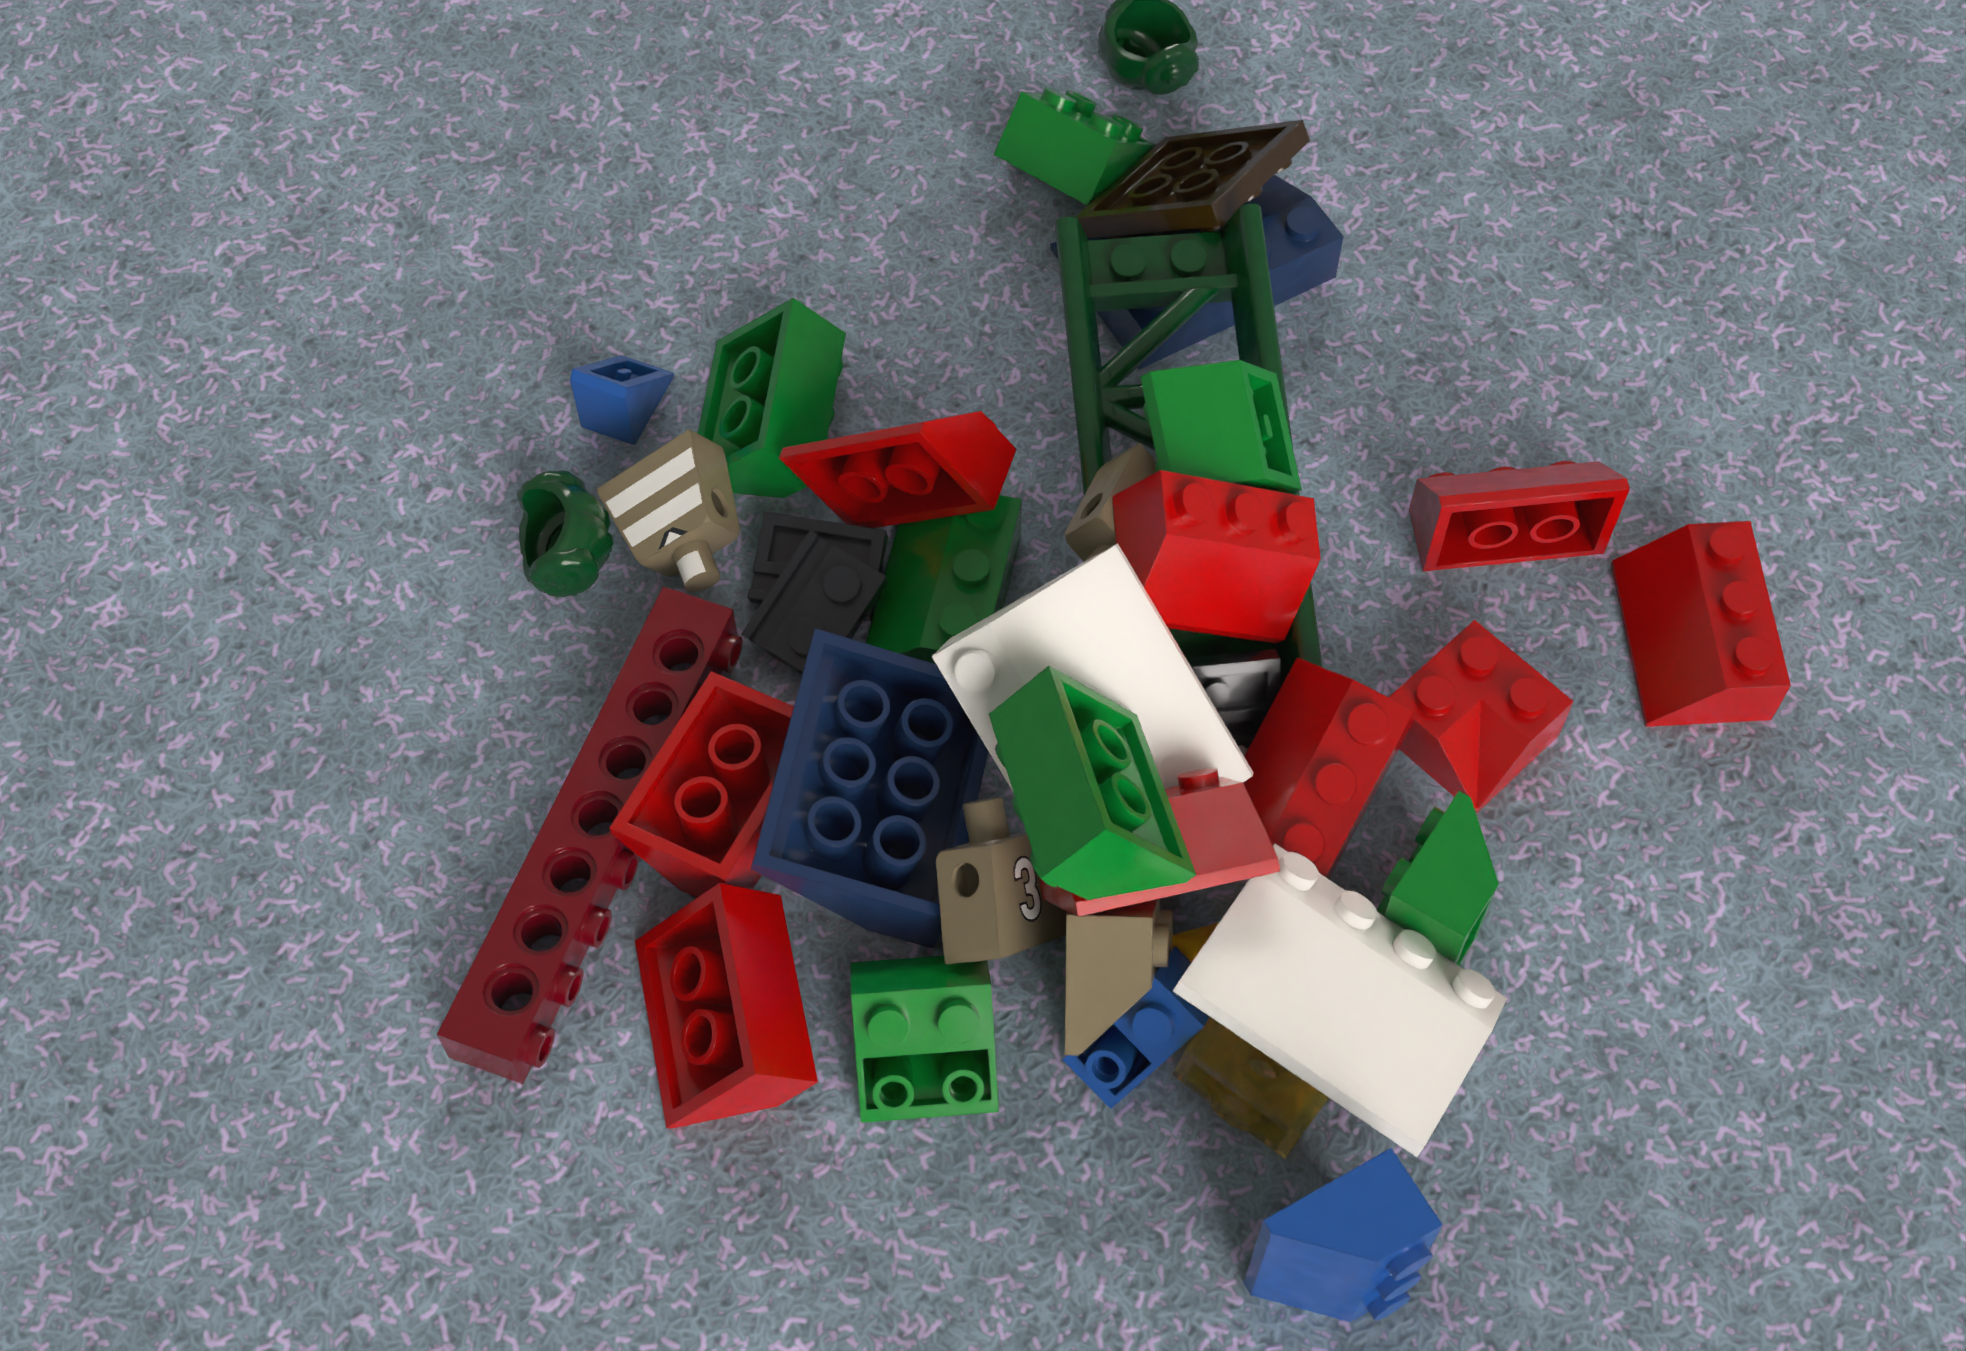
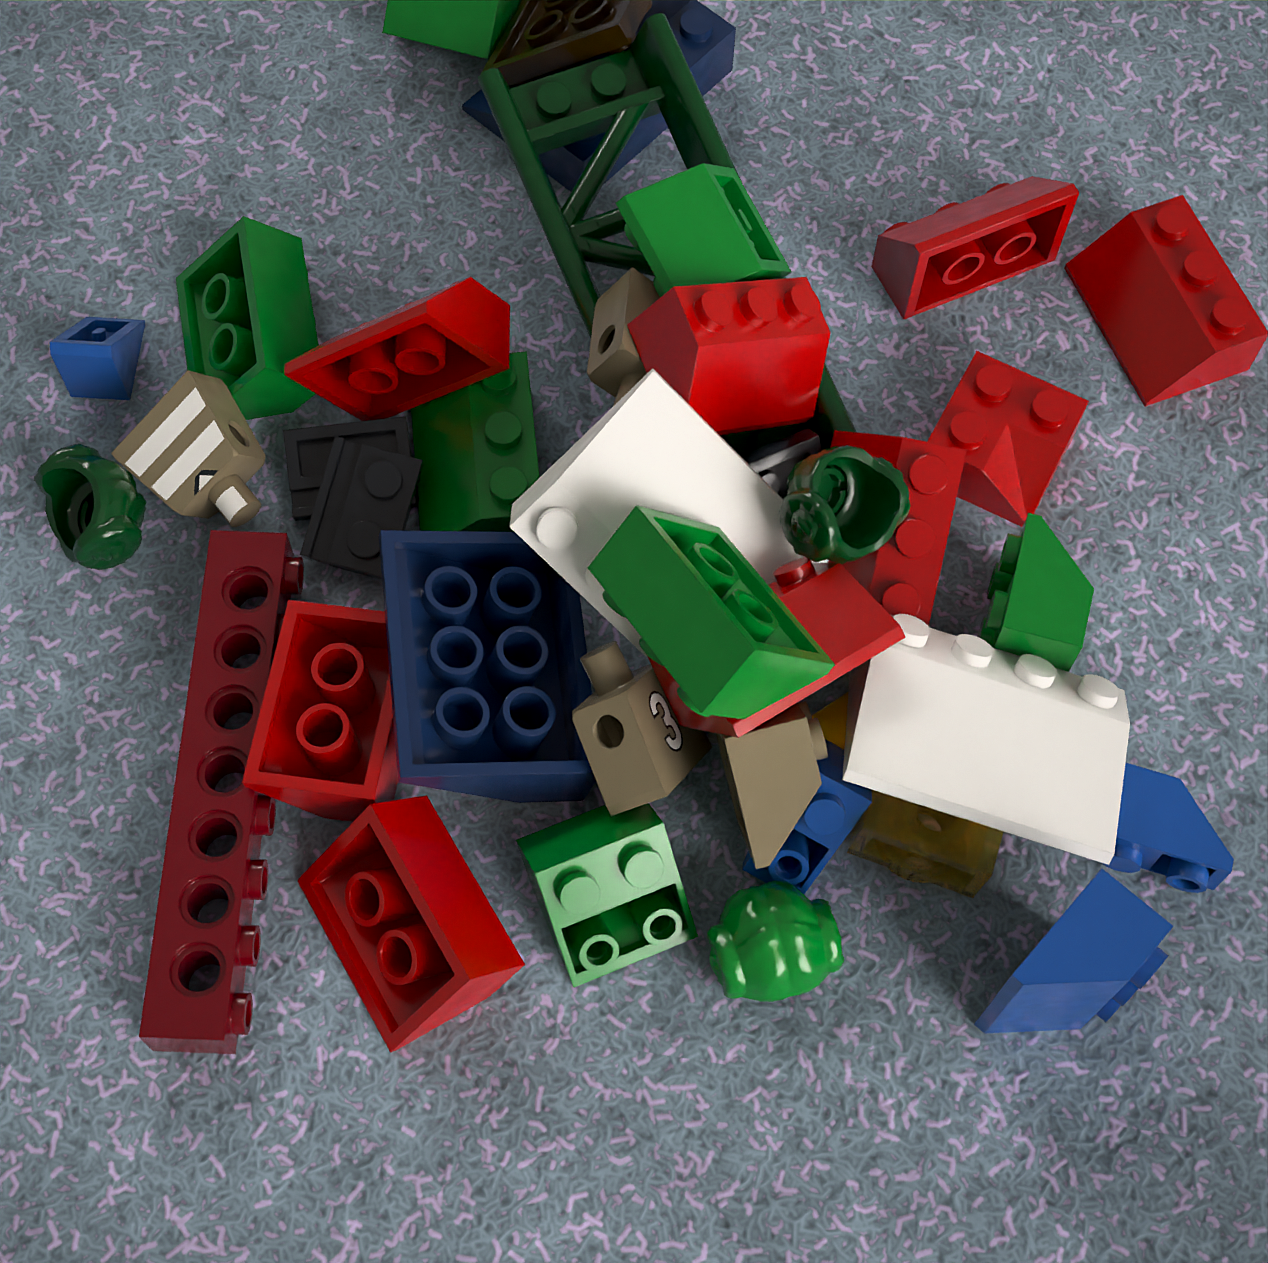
camera: 20 degrees left, 5 degrees up
(1066, 1138) = (774, 943): none -> green hair
(1267, 728) = (842, 504): none -> dark green hair
(1496, 1146) = (1167, 833): none -> blue slope

